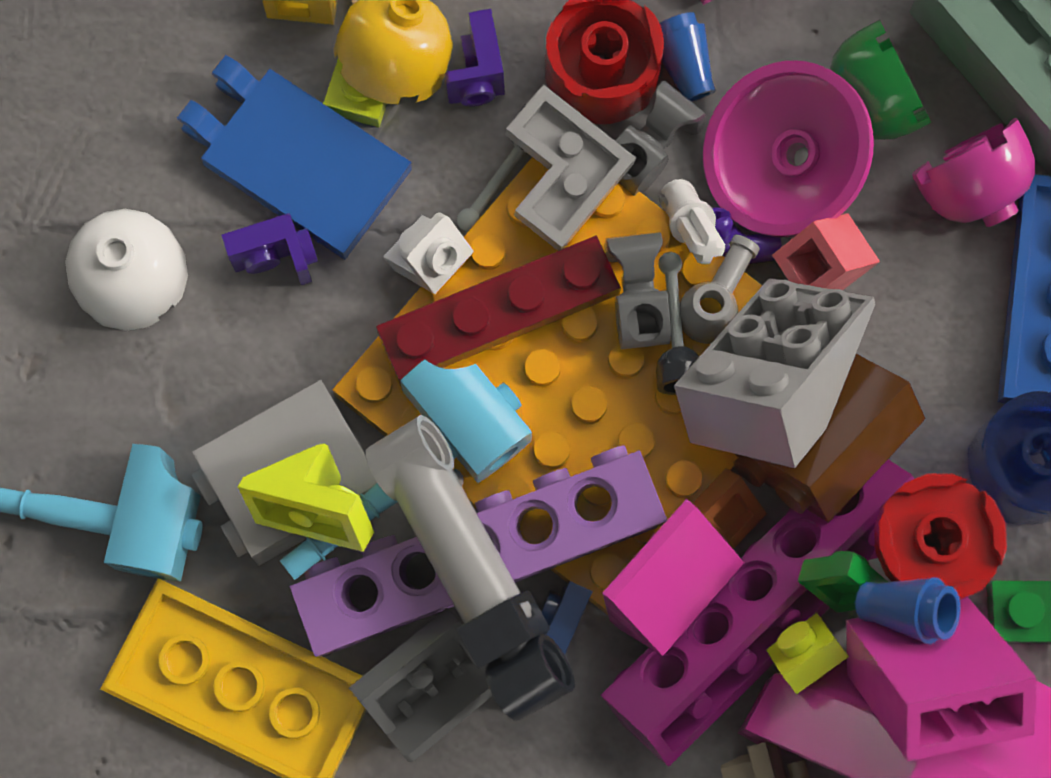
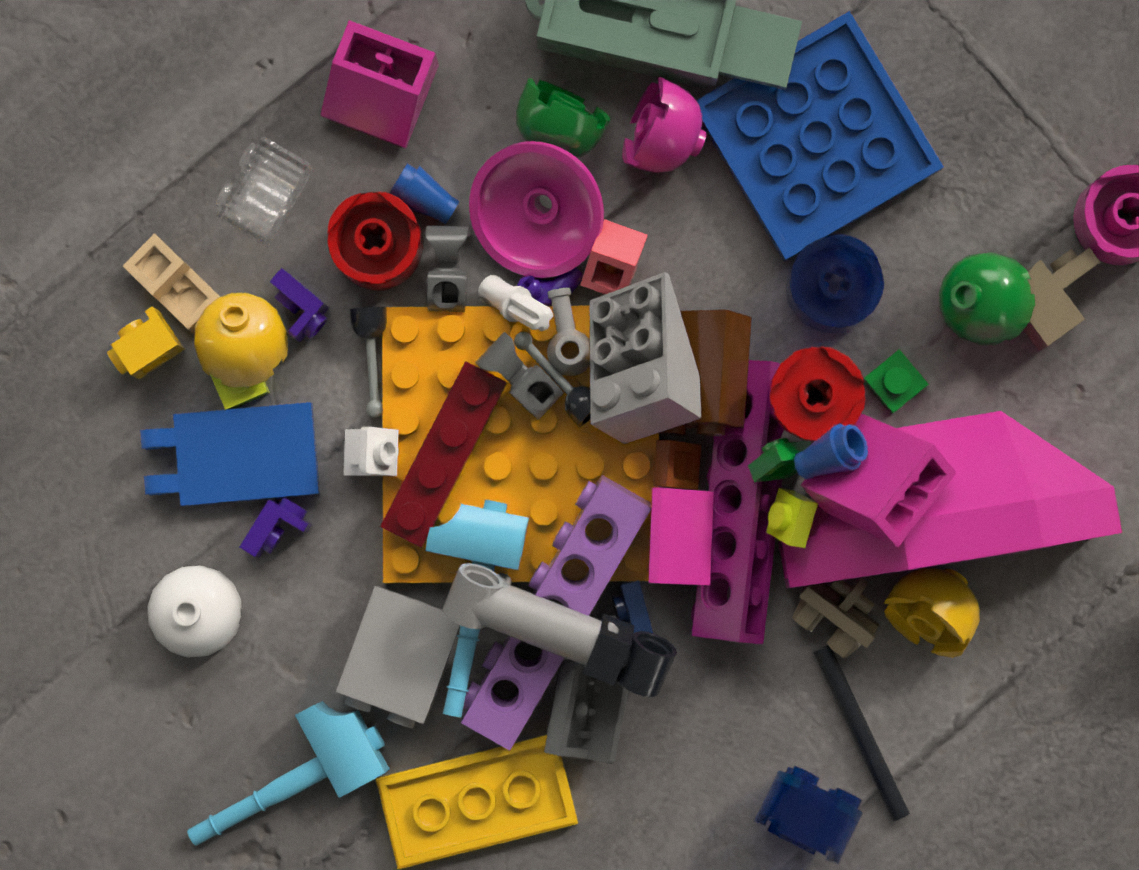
camera: 30 degrees left, 10 degrees up
(306, 500) = (428, 668): neon yellow slope -> none
(580, 165) = (420, 323): light grey plate -> none

